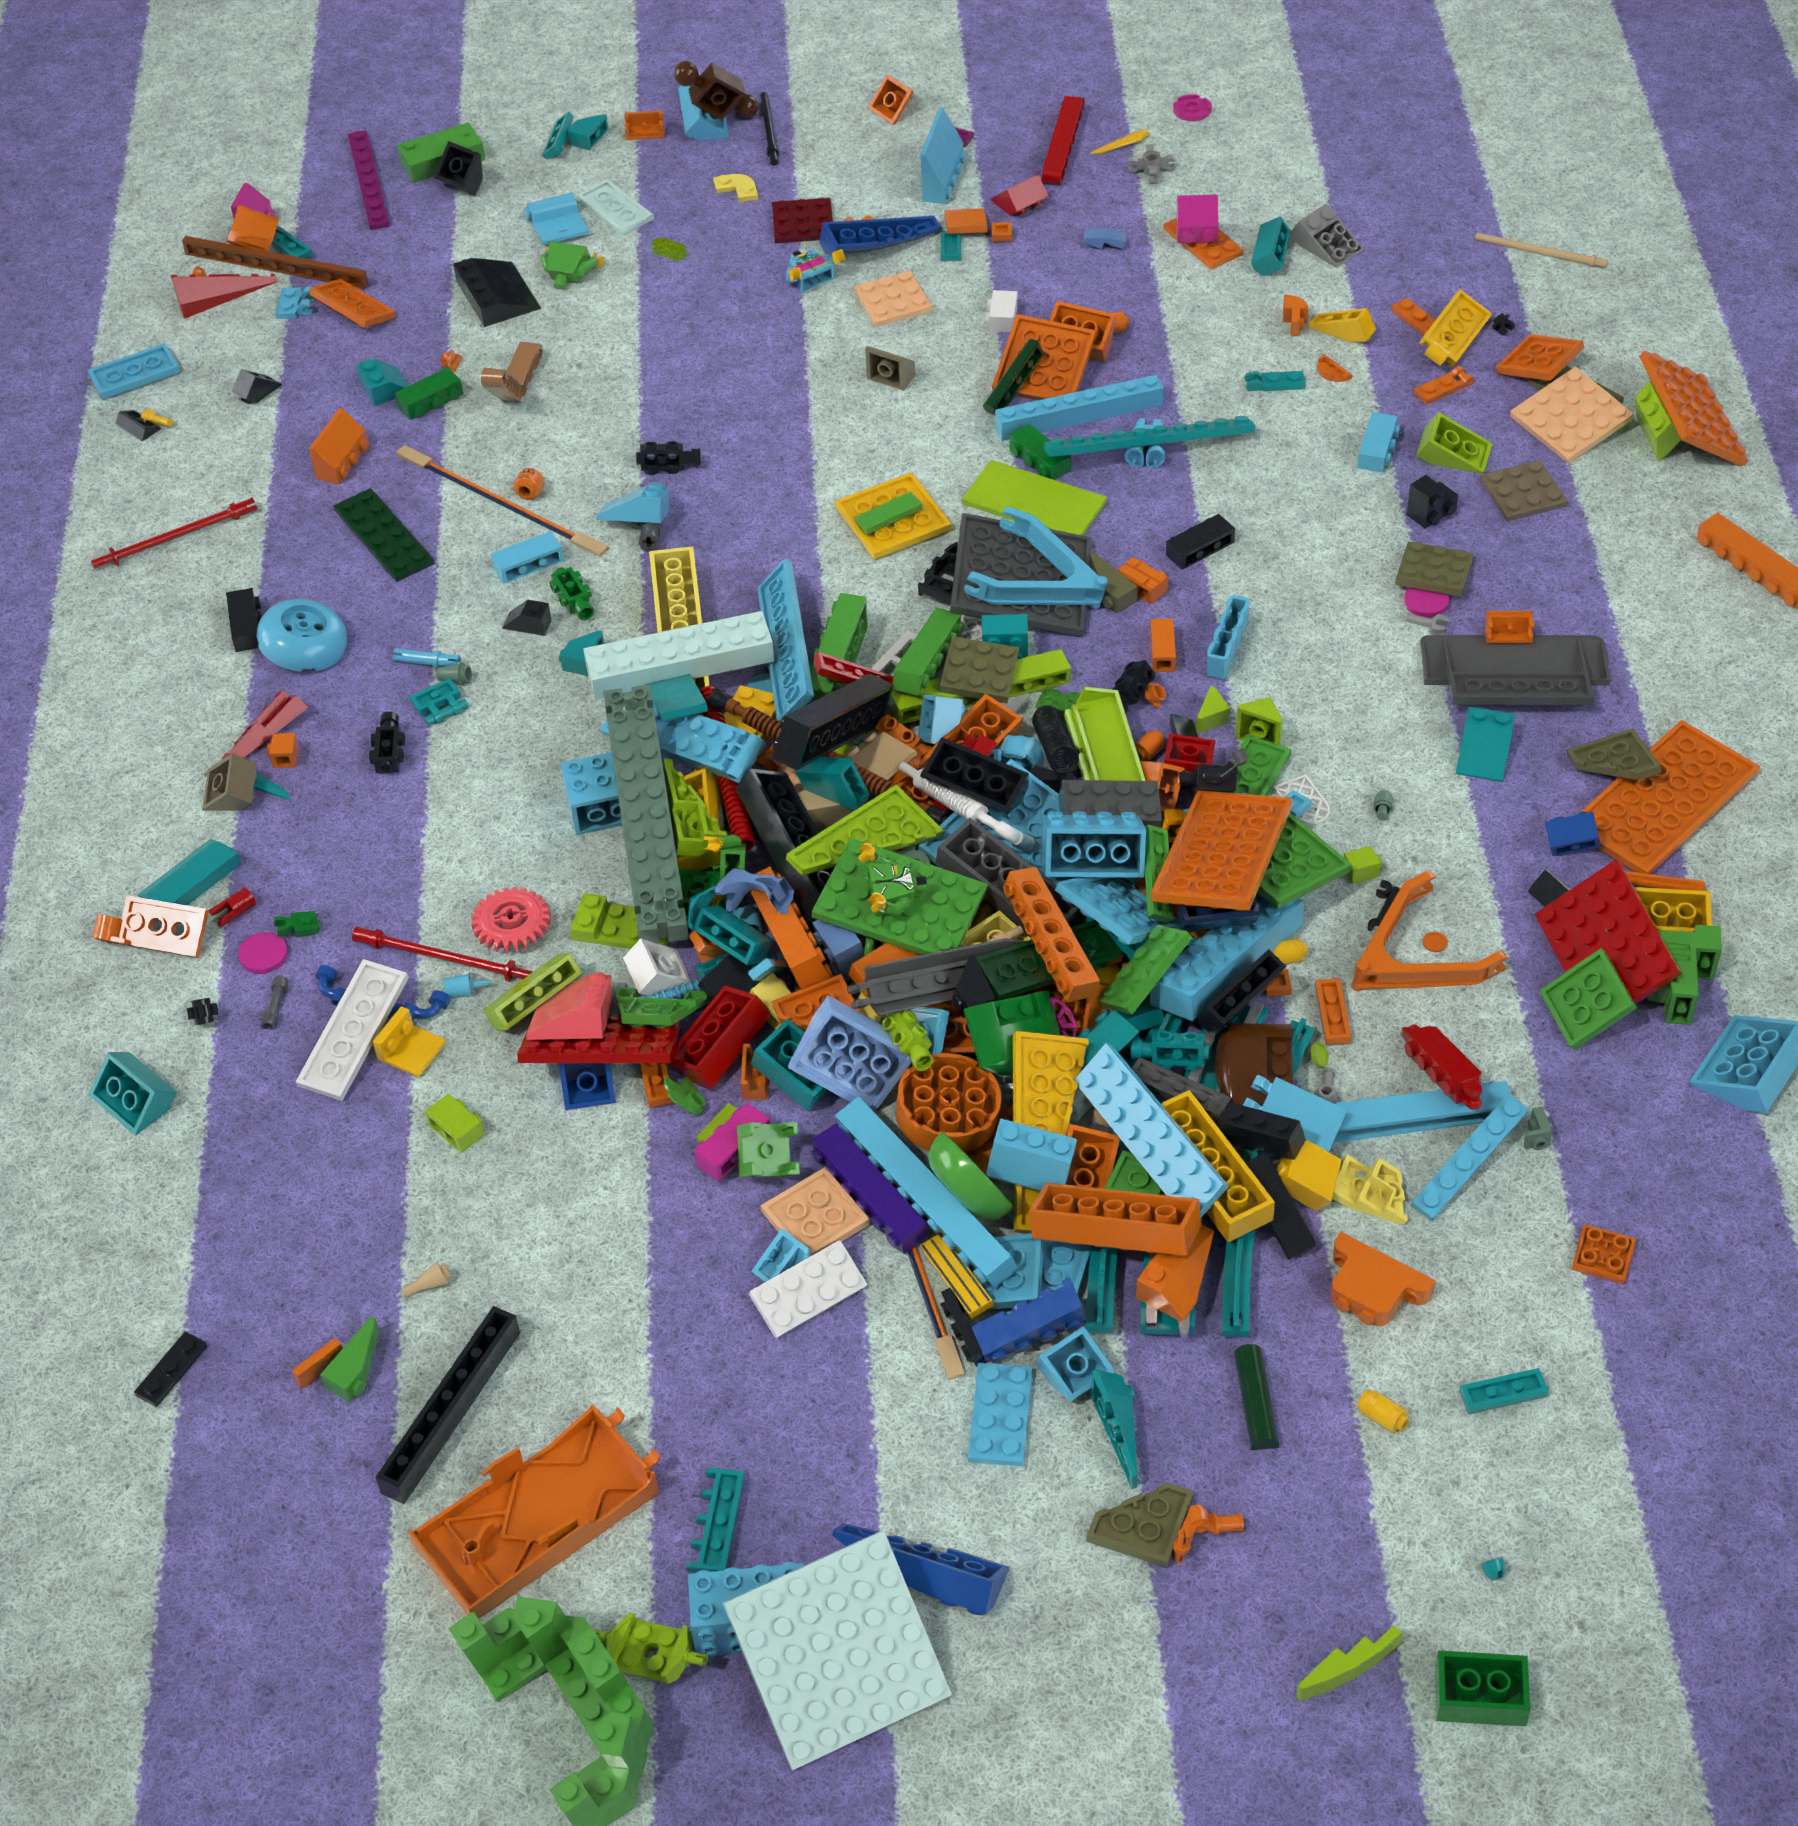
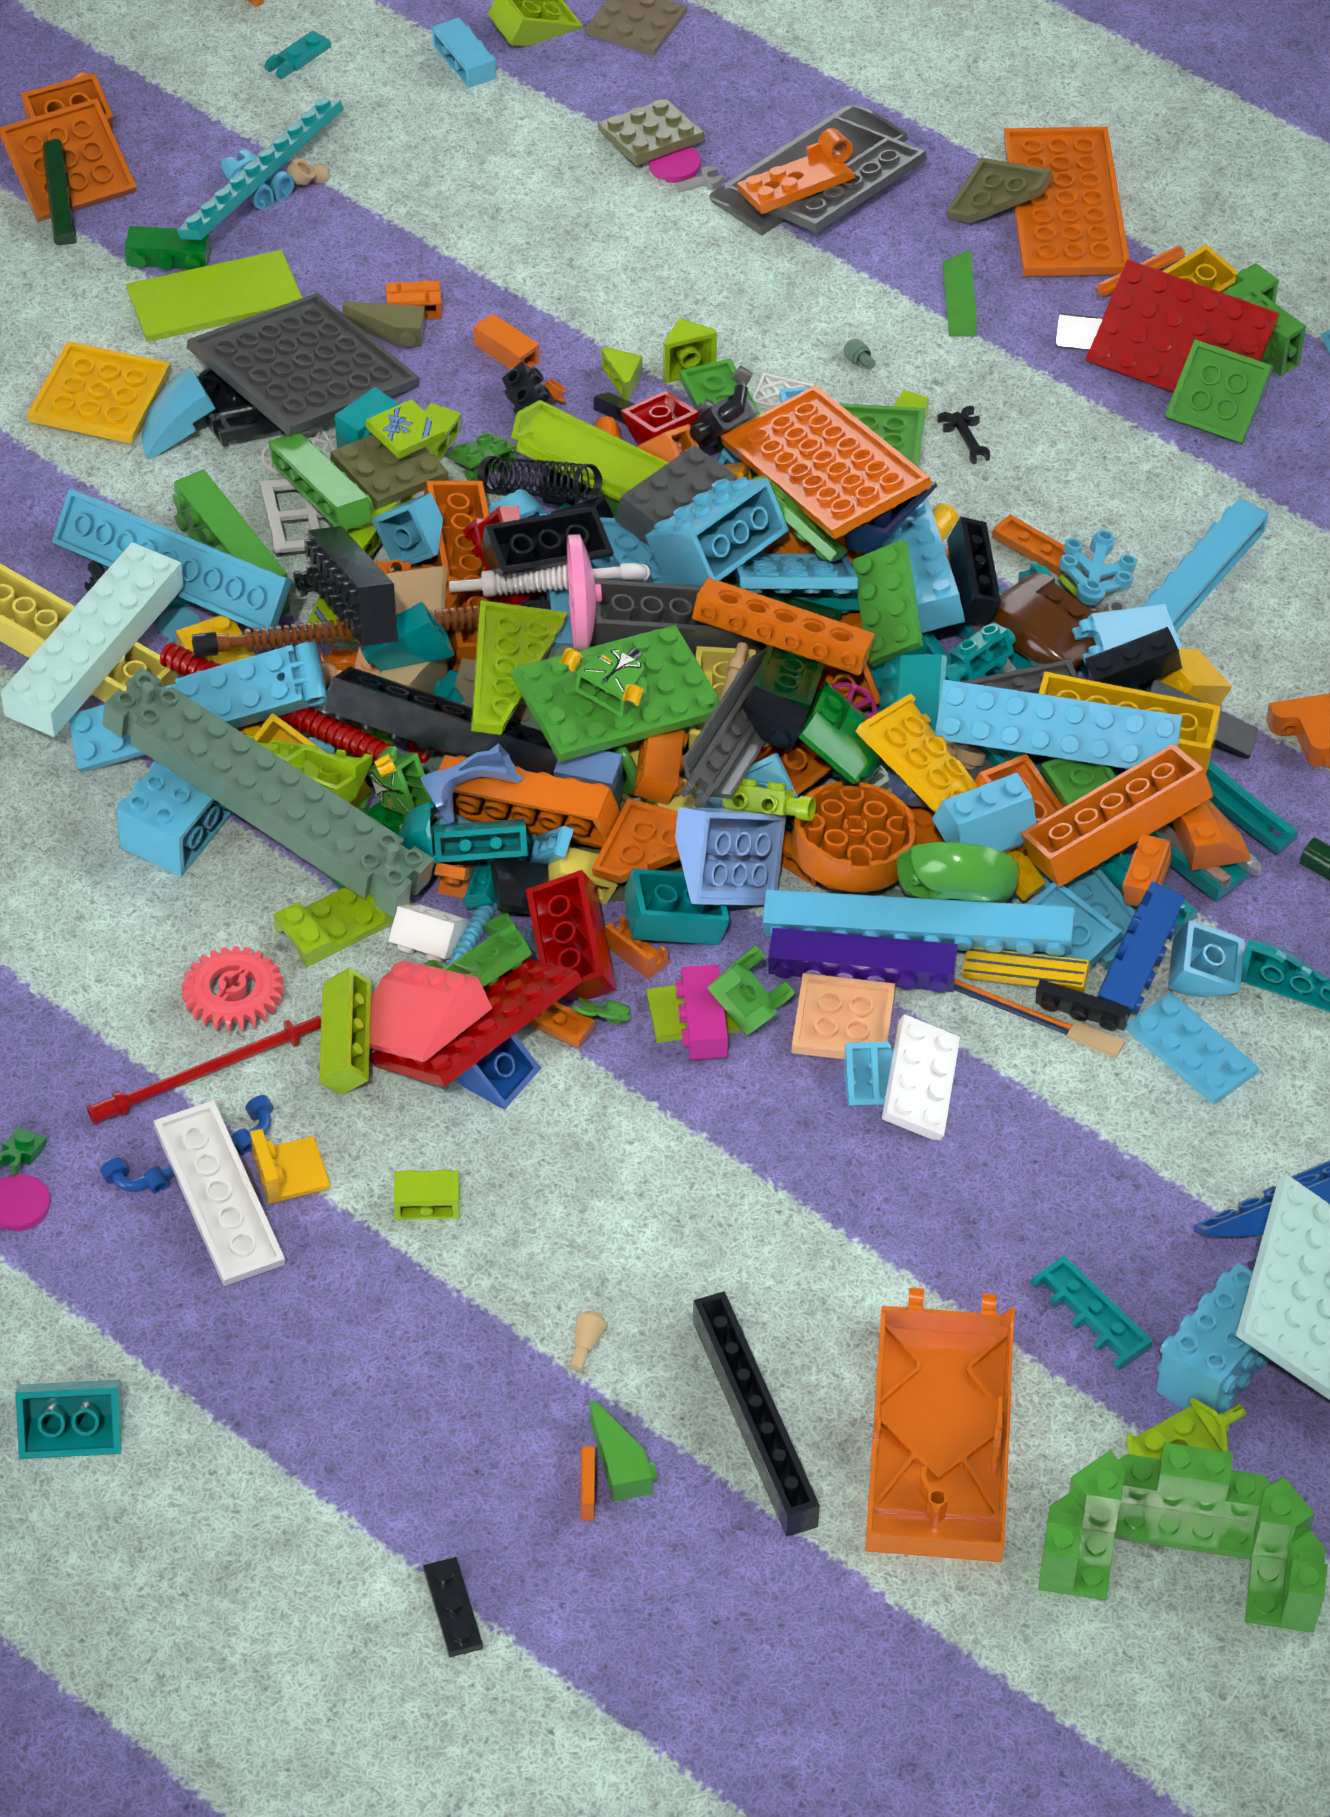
camera: 50 degrees left, 0 degrees up
(202, 1011) = (39, 1294): black gear -> none
(278, 986) = (80, 1217): flat silver bar -> none
(464, 984) = (265, 1077): medium azure piece -> none
(677, 698) = (174, 667): teal tile -> none
(843, 670) = (279, 544): red plate -> none
(888, 513) = (100, 389): bright green tile -> none
(915, 554) = (174, 413): none -> medium azure brick
(936, 816) = (582, 593): none -> bright pink dish
(1006, 651) = (405, 429): none -> lime tile
(1080, 588) = (372, 333): medium azure piece -> none
(1081, 406) = (151, 185): medium azure brick -> none
(1096, 1272) = (1147, 865): none -> orange brick
(1177, 455) = (304, 173): none -> tan plate
(1200, 541) = (420, 234): black brick -> none
(1227, 637) = (557, 299): medium azure brick -> none
(1331, 370) = (335, 15): orange tile -> none
(1349, 1057) = (1090, 590): none -> medium azure plant
(1378, 1193) = (1244, 657): light yellow slope -> none
(1380, 970) = (1030, 482): orange piece -> none
(1430, 501) = (580, 75): black brick -> none
(1435, 941) = (1037, 435): orange piece -> none
(1444, 1064) = (1182, 518): red hinge -> none
(1469, 1157) = (1283, 577): medium azure plate -> none
(1485, 744) = (878, 248): teal slope -> none
(1490, 661) = (803, 177): none -> orange hinge
(1504, 813) = (960, 296): none -> bright green slope
(1509, 626) = (775, 140): orange hinge -> none
(1539, 1130) = (1302, 518): sand green bracket -> none
(1572, 834) = (1042, 273): blue brick -> none

